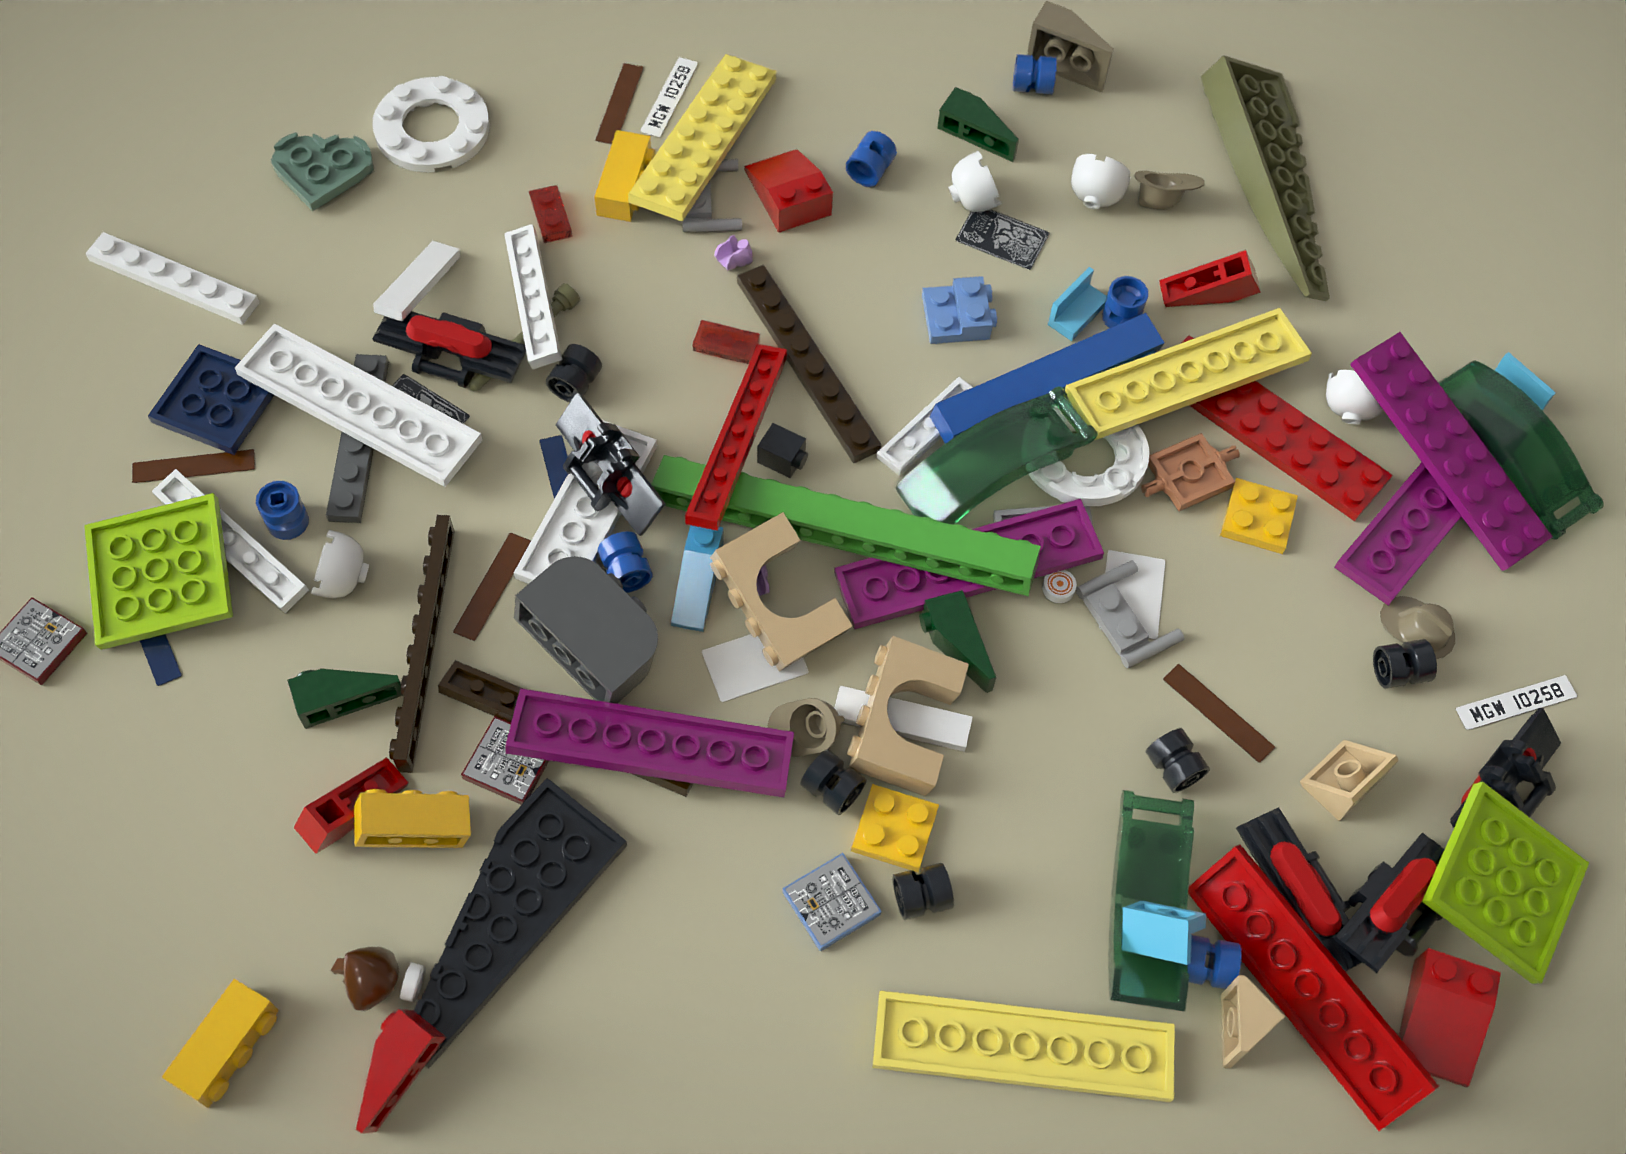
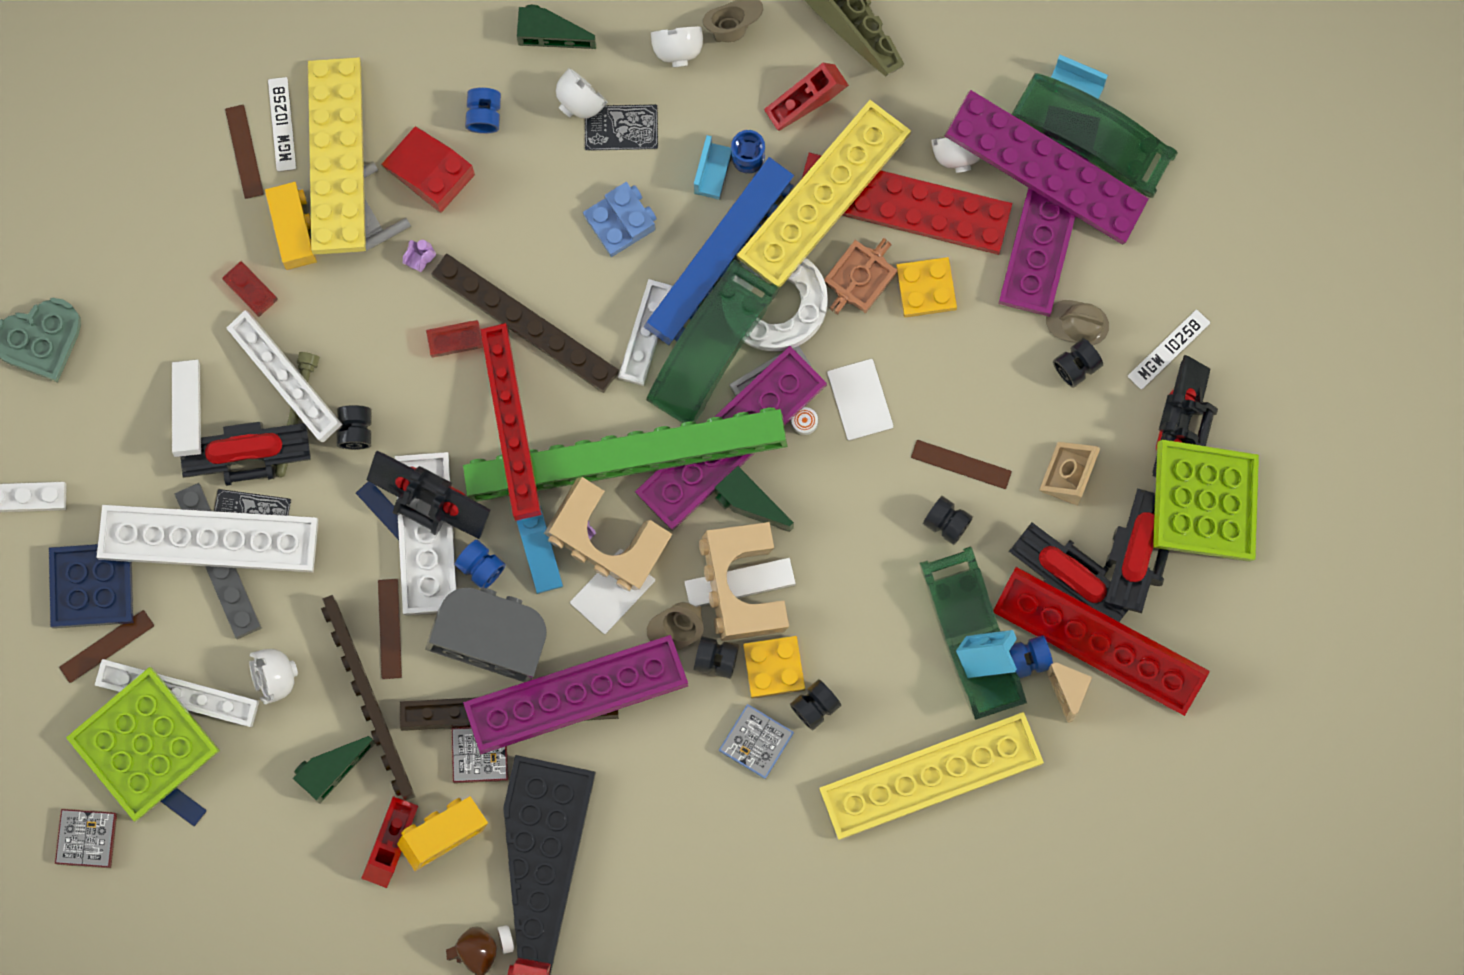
camera: 20 degrees left, 15 degrees up
(282, 510) = (203, 651): blue wheel -> none
(425, 156) = (111, 286): white plate -> none
(782, 450) = (547, 413): black brick -> none
(1119, 620) = (859, 427): light grey plate -> none
(1448, 1014) = (1200, 615): red slope -> none

